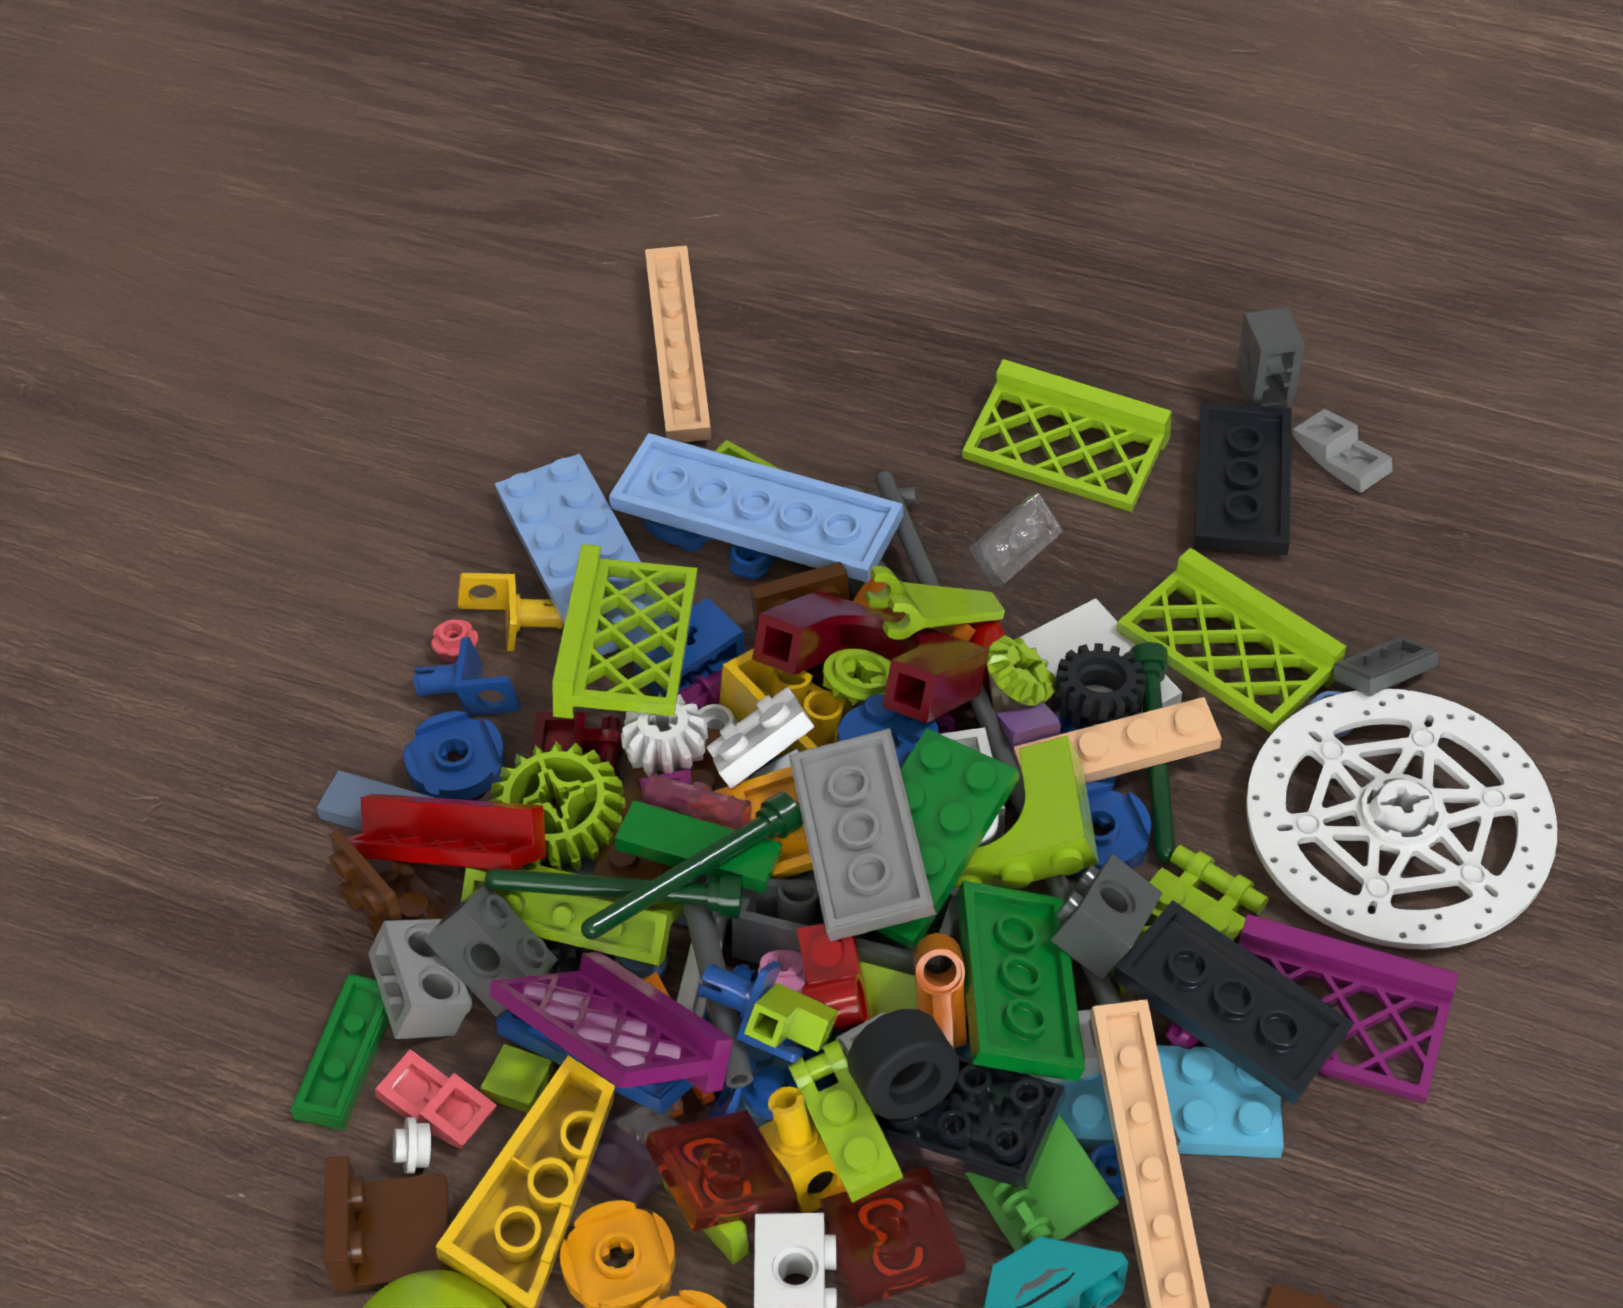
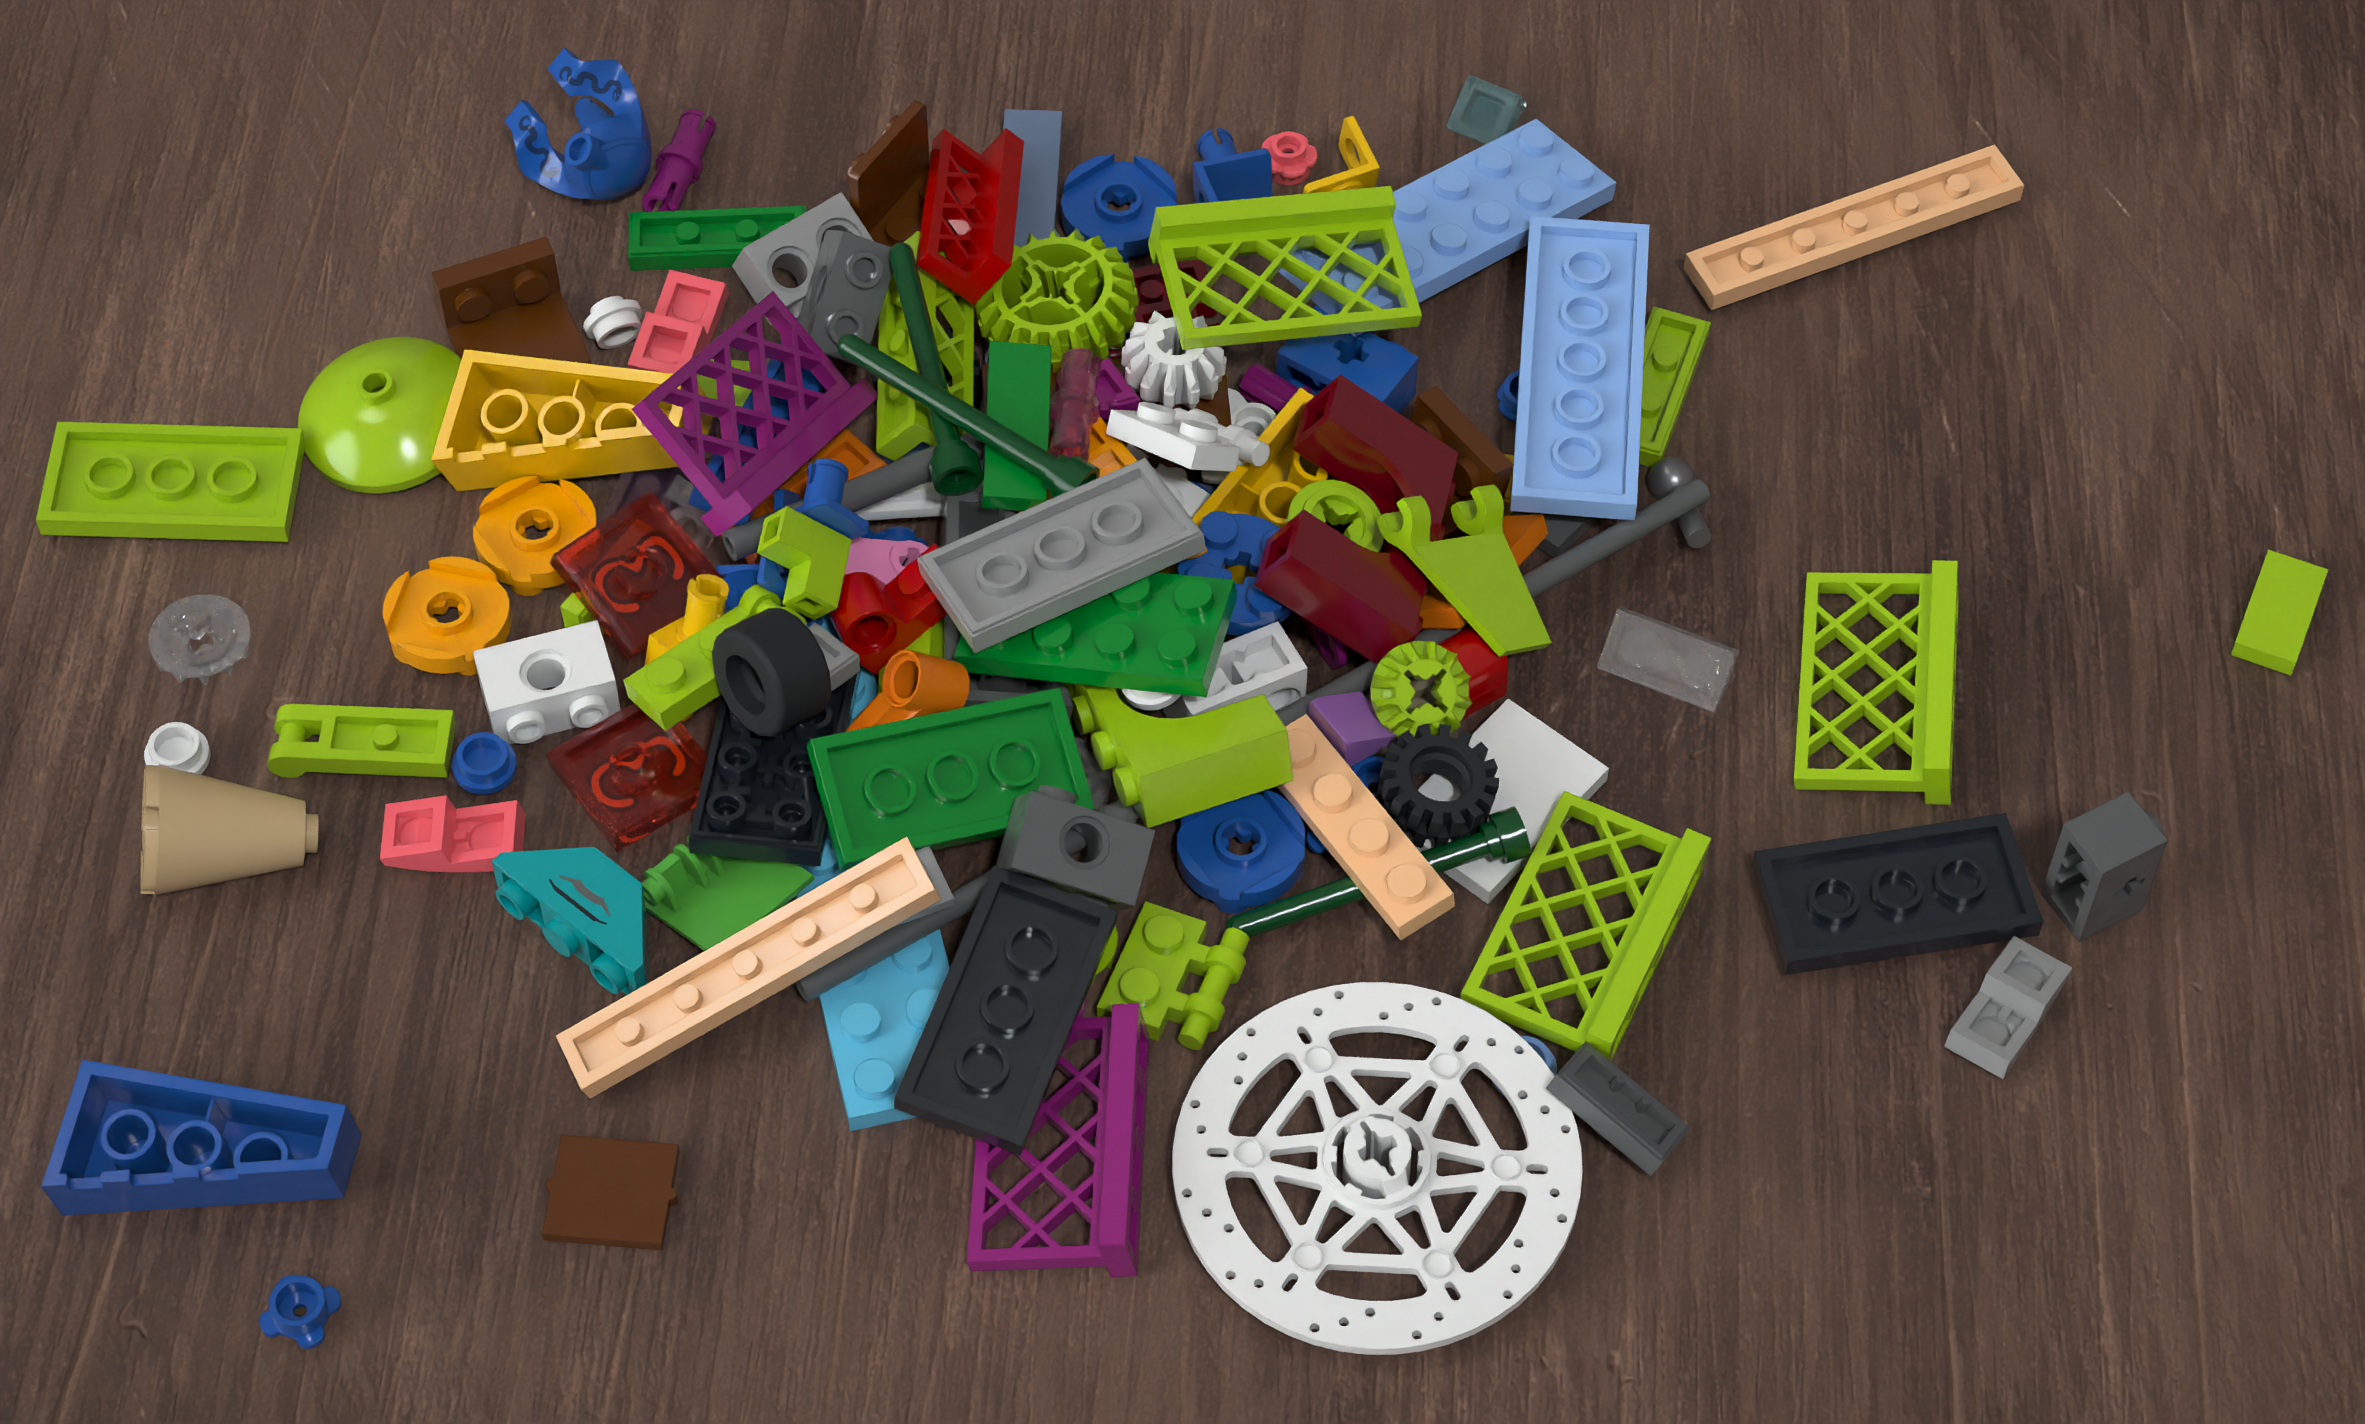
camera: 70 degrees right, 5 degrees up
(224, 1102) = (611, 151): none -> blue piece
(253, 1059) = (679, 162): none -> magenta pin
(468, 513) = (1485, 111): none -> clear light blue slope
(1074, 237) = (2279, 612): none -> lime tile

